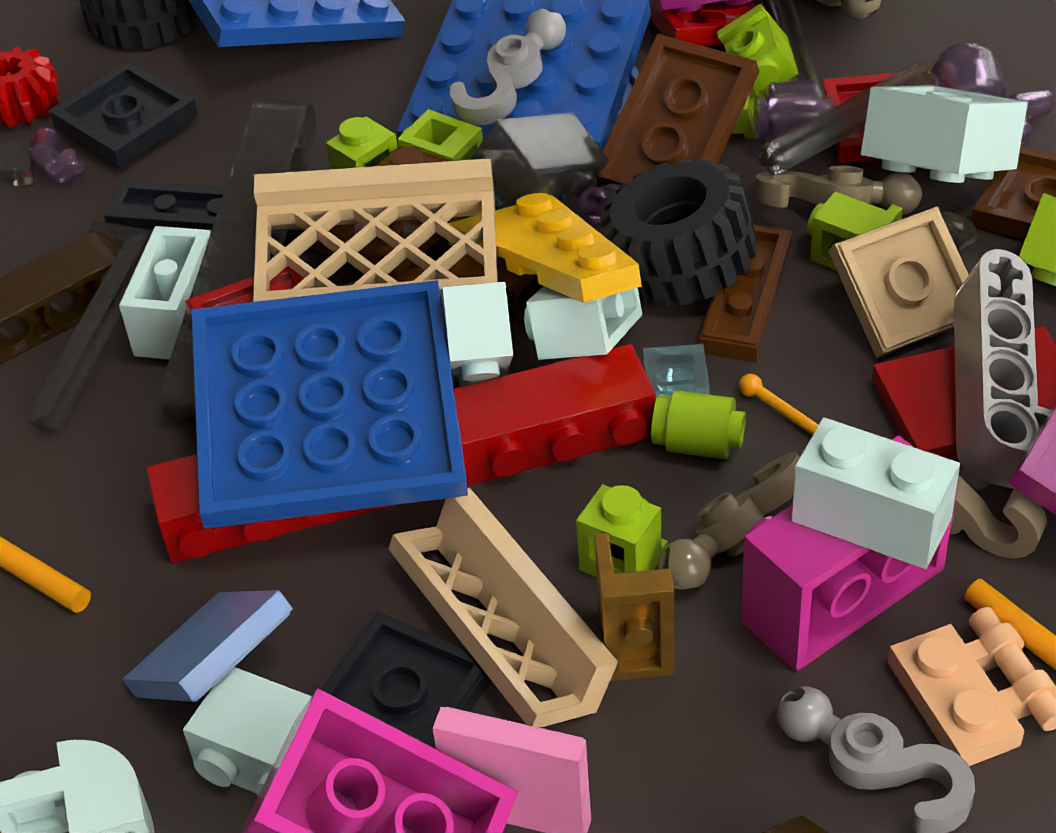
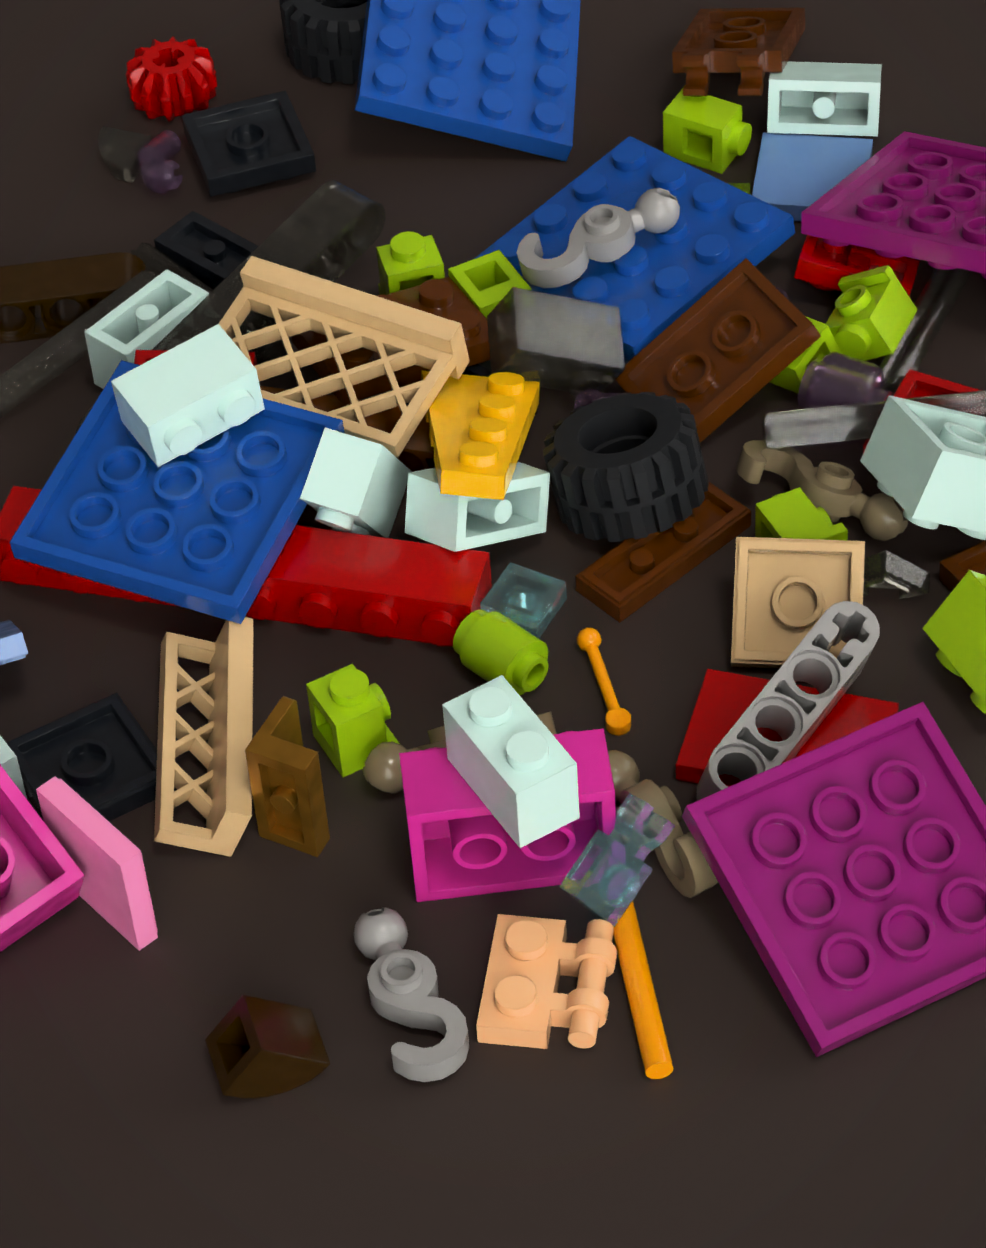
camera: 30 degrees right, 0 degrees up
(293, 310) = (188, 395): none -> light aqua brick
(974, 559) = (612, 865): none -> clear light blue plate

